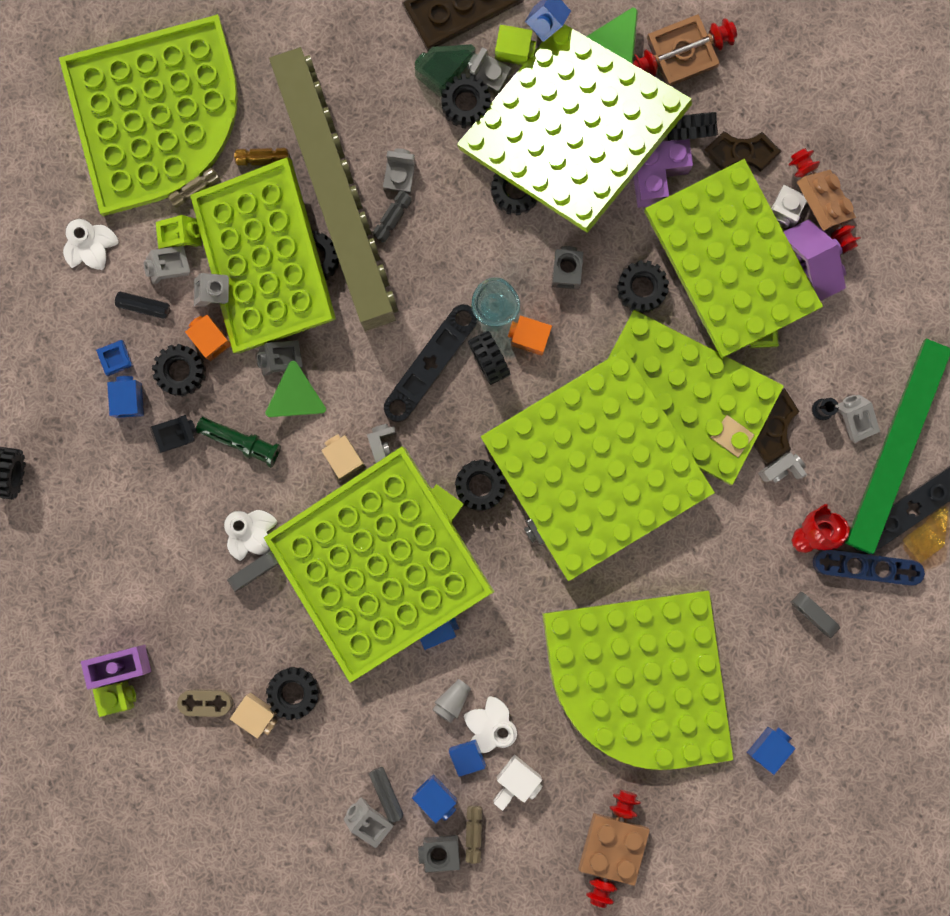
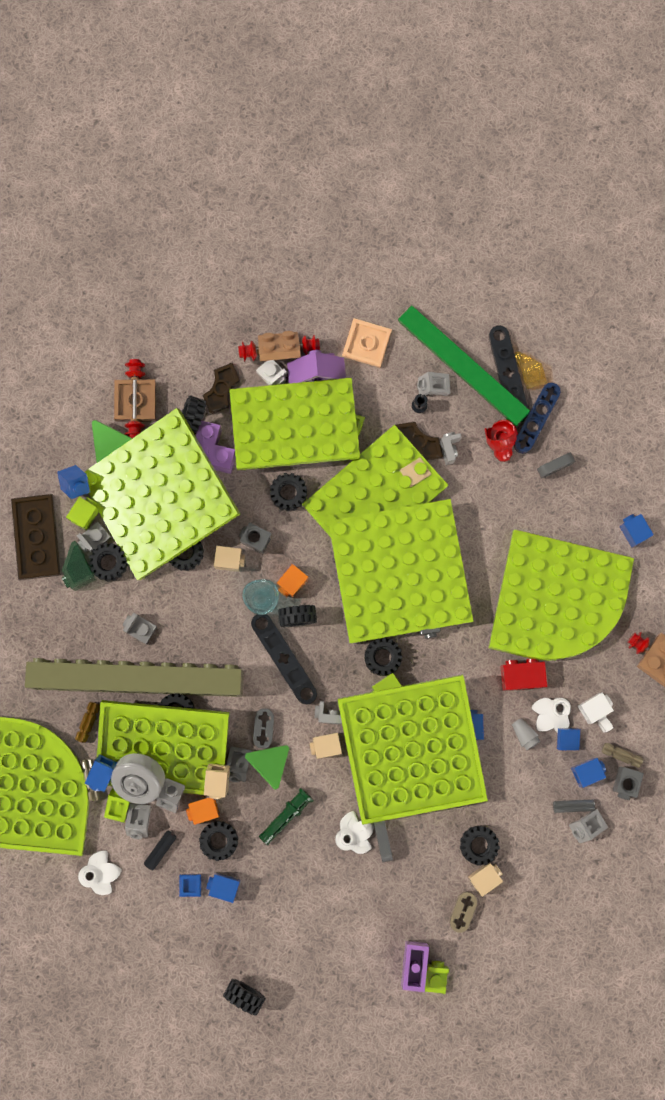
camera: 75 degrees left, 5 degrees down
(173, 433) = (263, 861): black bracket -> none
(203, 194) = (100, 773): none -> blue brick
(212, 240) = (138, 778): none -> light grey wheel
(246, 337) = (216, 781): none -> tan brick
(337, 378) = (258, 728): none -> dark grey beam
(392, 216) = (168, 645): dark grey axle -> none
(525, 672) = (523, 675): none -> red brick
(528, 246) = (229, 559): none -> tan brick
(878, 311) = (366, 343): none -> light nougat tile

